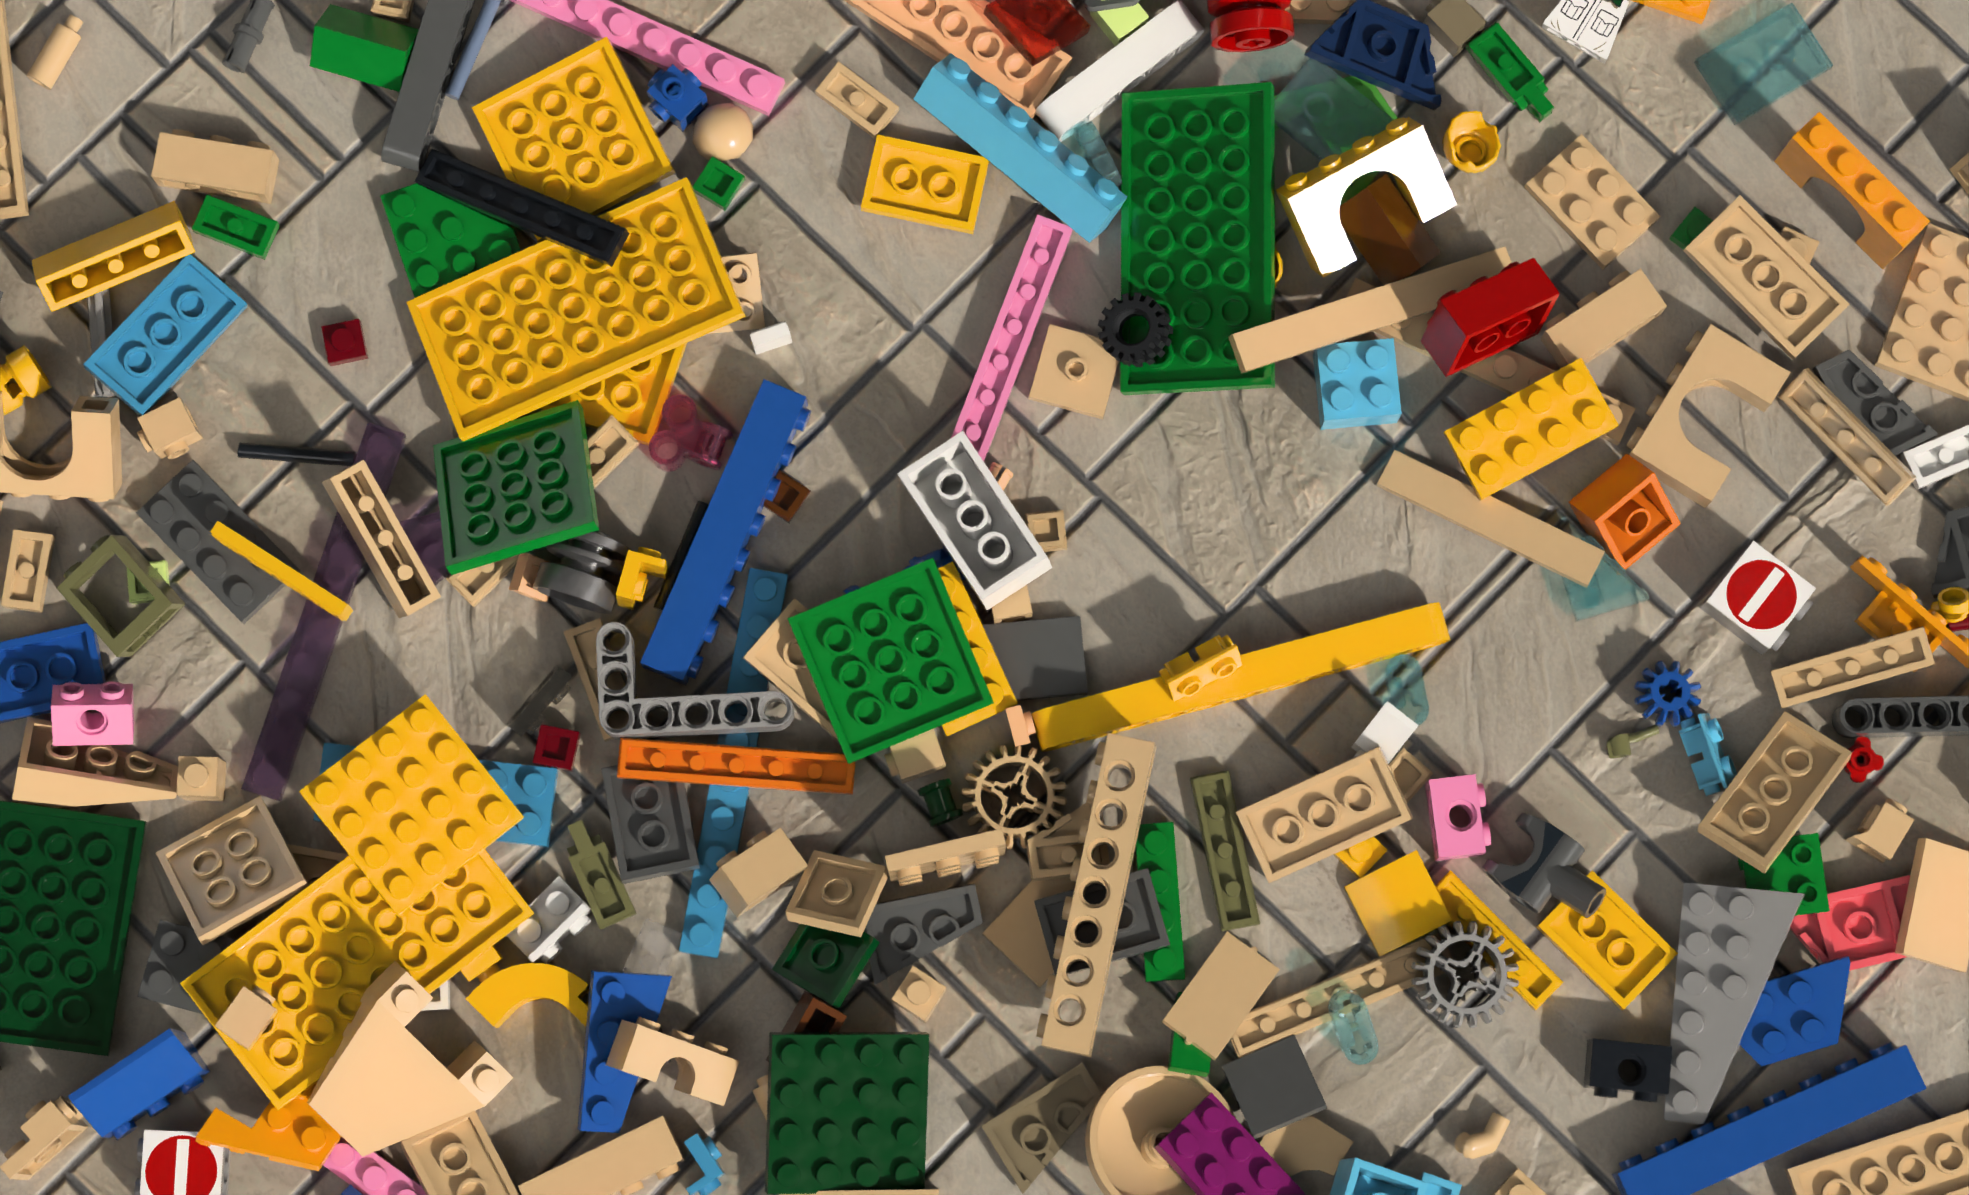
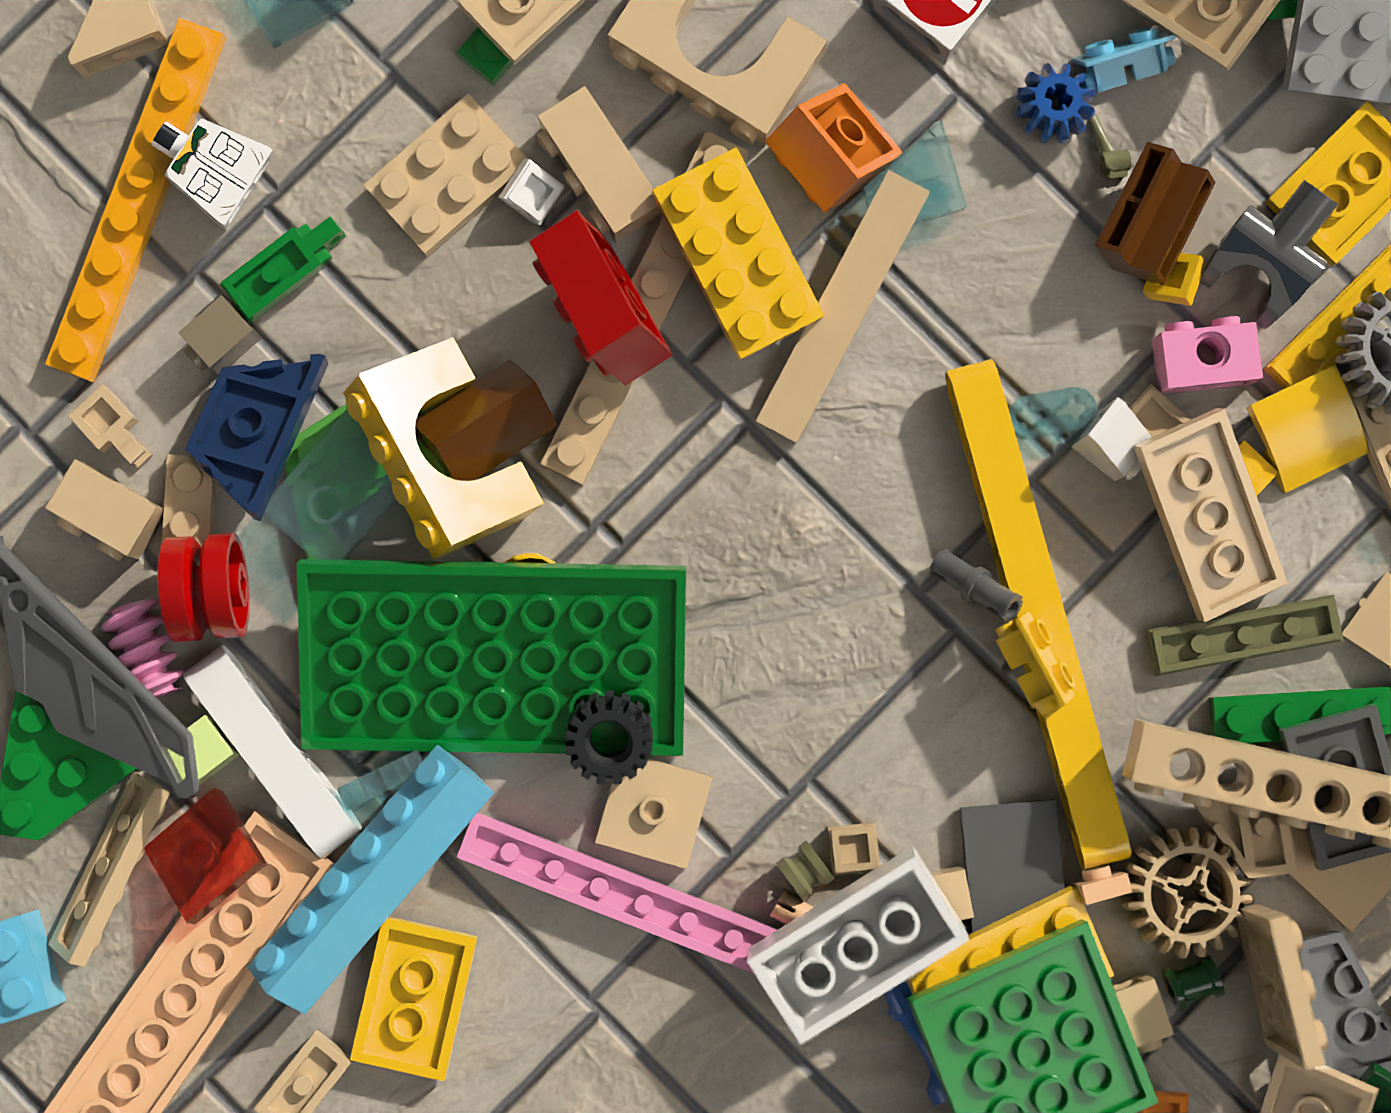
camera: 90 degrees left, 5 degrees up
(1028, 489) = (805, 870): none -> olive wheel
(1263, 623) = (976, 585): none -> dark grey pin
(1357, 384) = (675, 464): medium azure brick -> none
(1359, 312) = (590, 449): tan tile -> none
(1471, 142) = (373, 318): yellow hair -> none
(1523, 791) = (1181, 283): none -> yellow plate
(1574, 771) = (1154, 214): none -> reddish brown piece
(1579, 268) = (531, 191): none -> white tile

